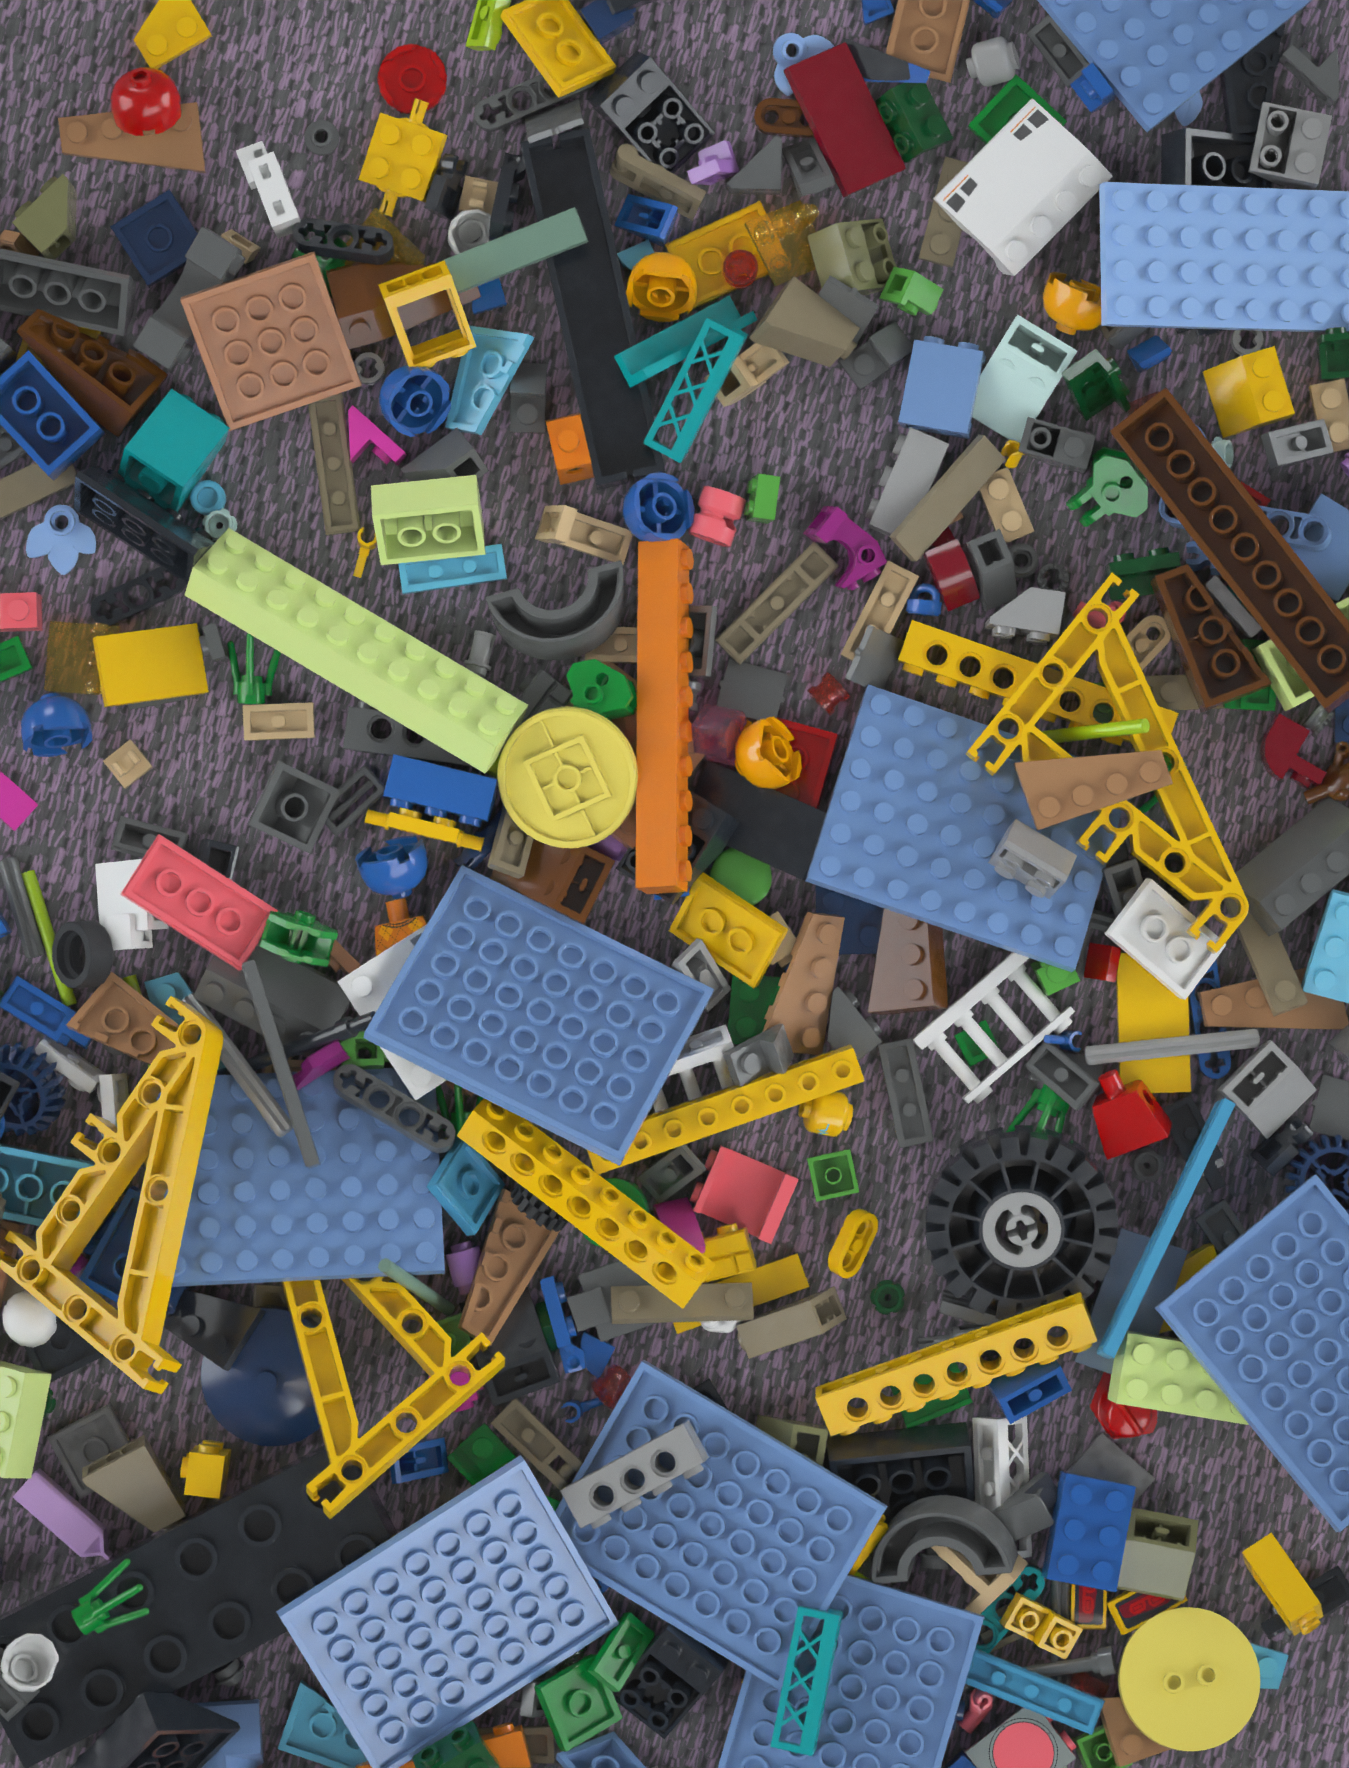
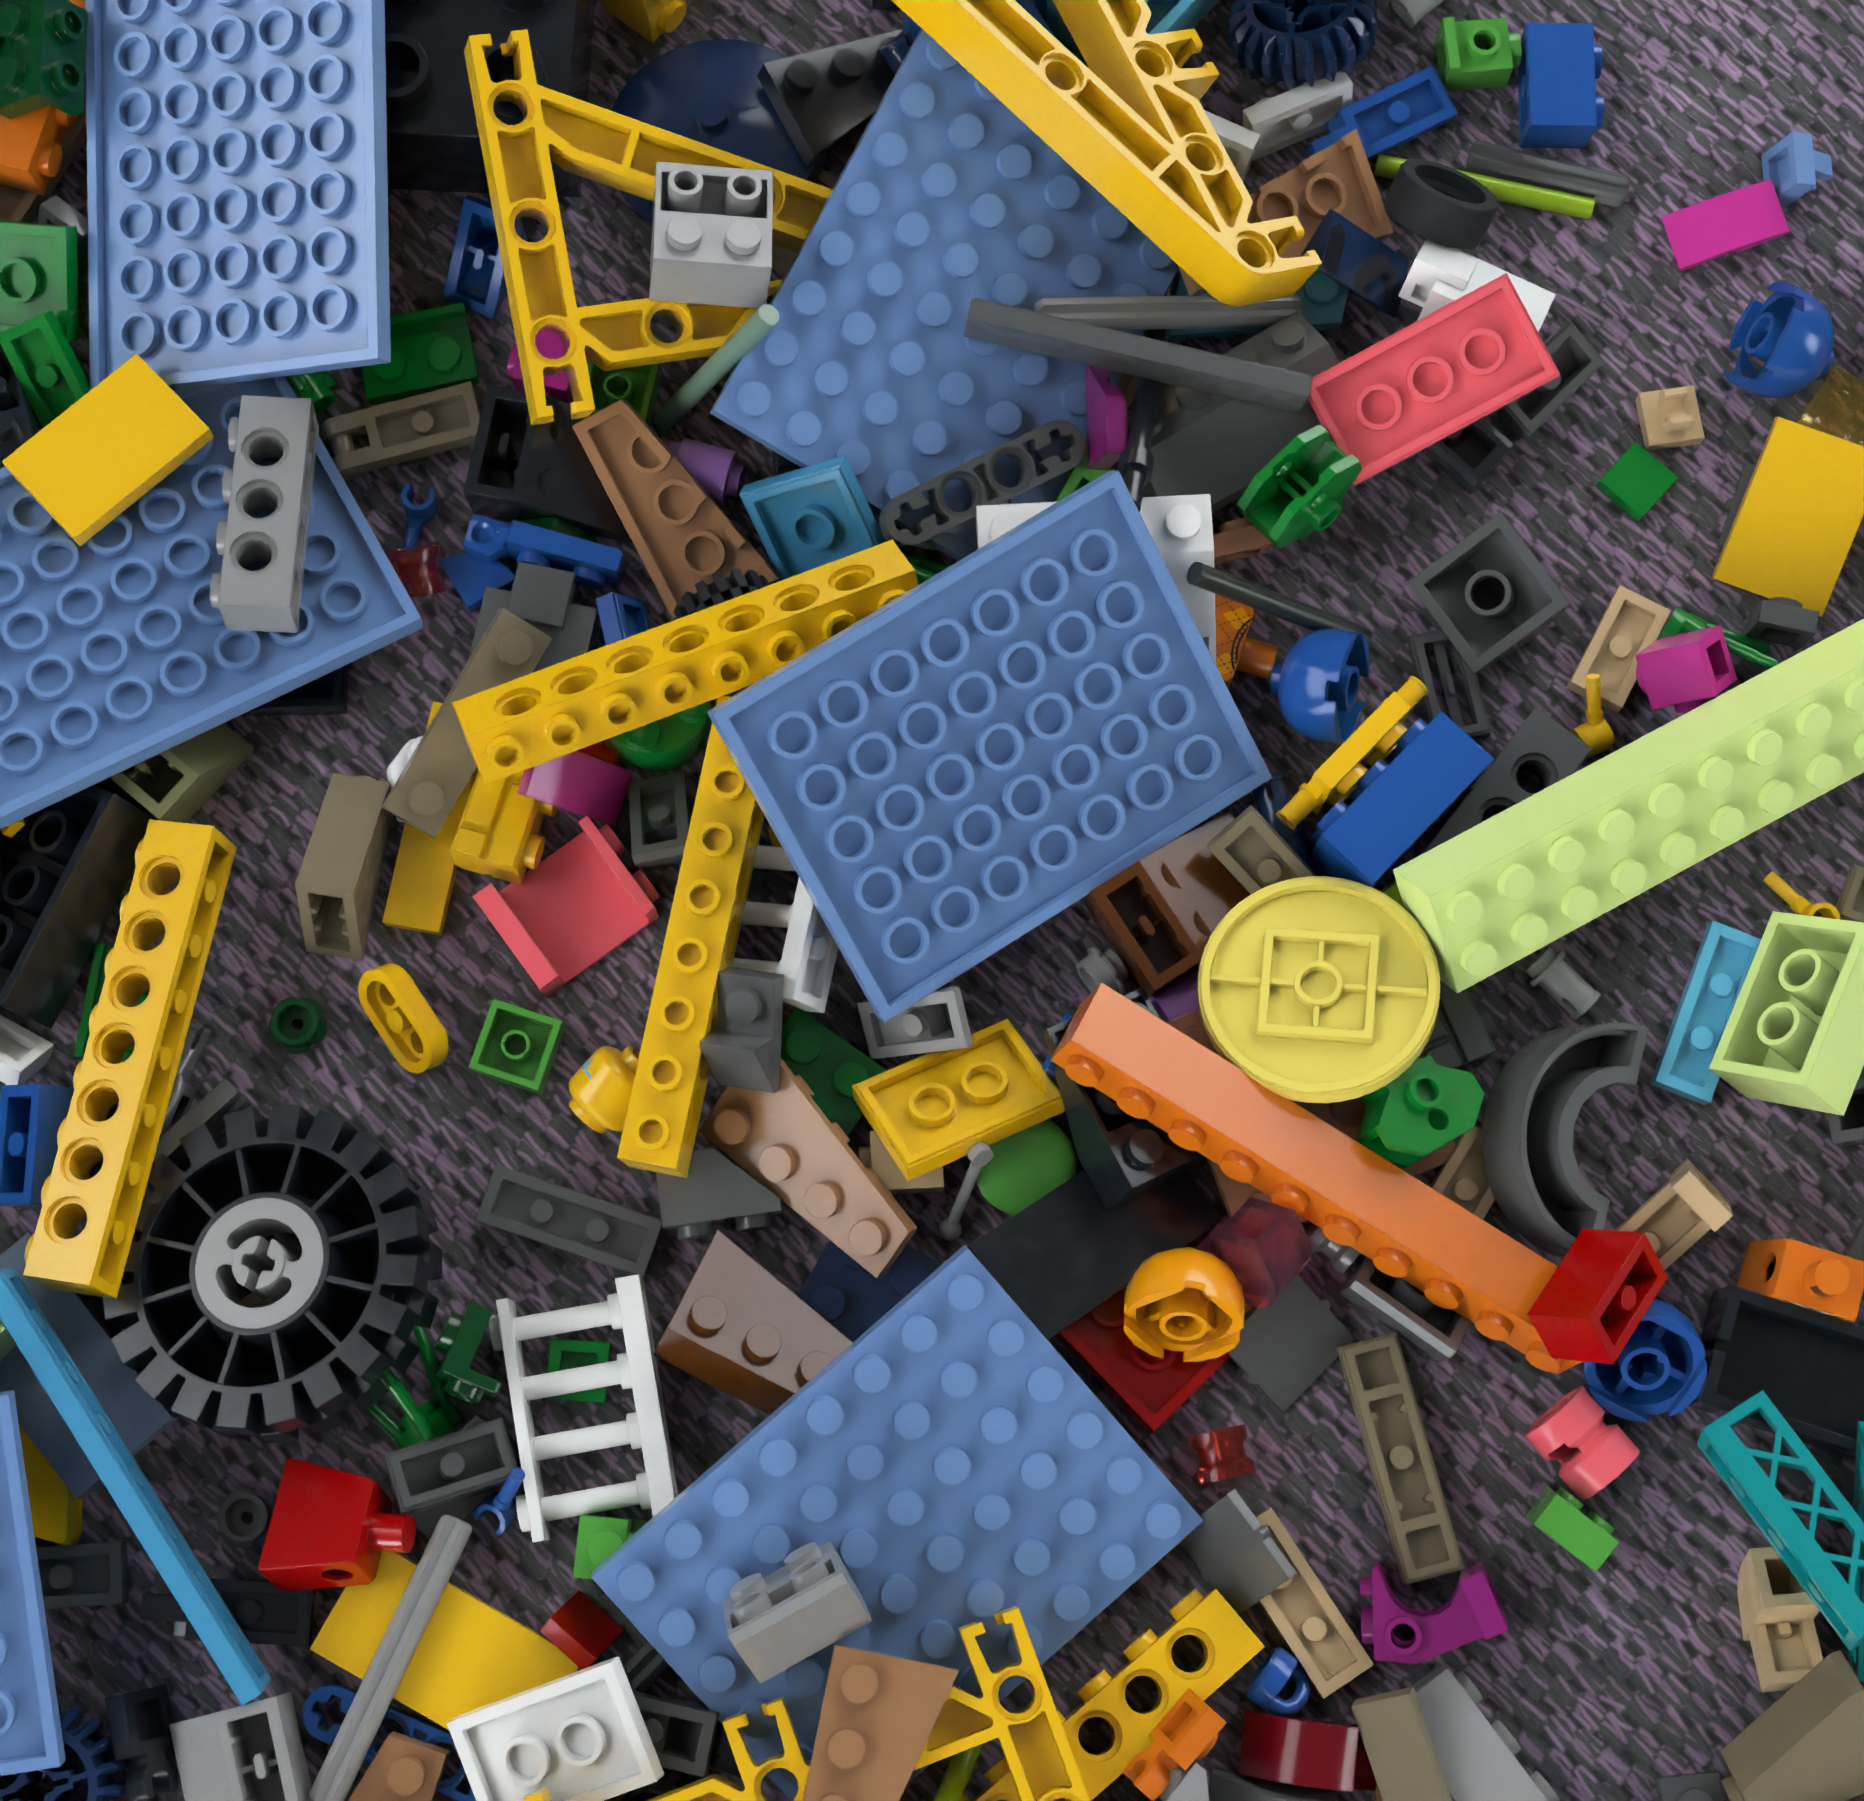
camera: 125 degrees right, 10 degrees down
(145, 980) = (1359, 262): none -> dark blue slope
(175, 762) = (1636, 482): none -> green tile
(276, 680) = (1685, 669): none -> dark pink brick
(334, 709) = (1596, 730): none -> yellow hand
(352, 1326) = (711, 235): none -> light grey slope
(369, 914) = (1268, 600): none -> pearl dark grey bar
(576, 1256) = (621, 616): none -> blue tile
(615, 894) = (1103, 968): none -> light grey plate
(645, 551) = (1597, 1296): none -> red brick
(649, 1584) = (108, 449): none -> yellow tile
(753, 901) = (979, 1156): none -> light grey hinge
(981, 637) = (1179, 1739): none -> orange plate
(1002, 1106) = (459, 1344): none -> dark green bracket

